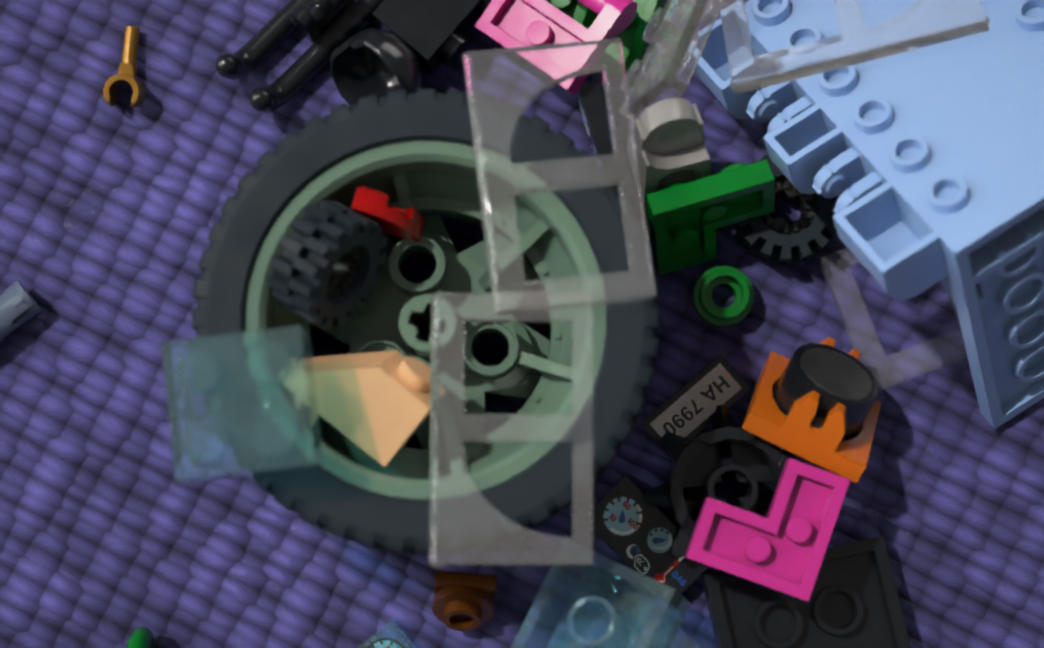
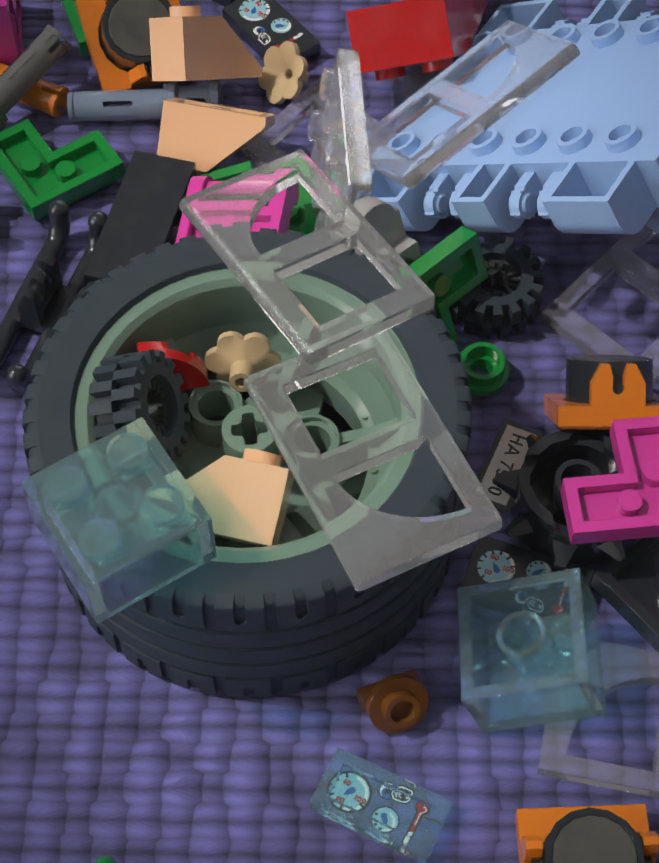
camera: 25 degrees left, 25 degrees down
(459, 232) = (240, 357): none -> tan plant

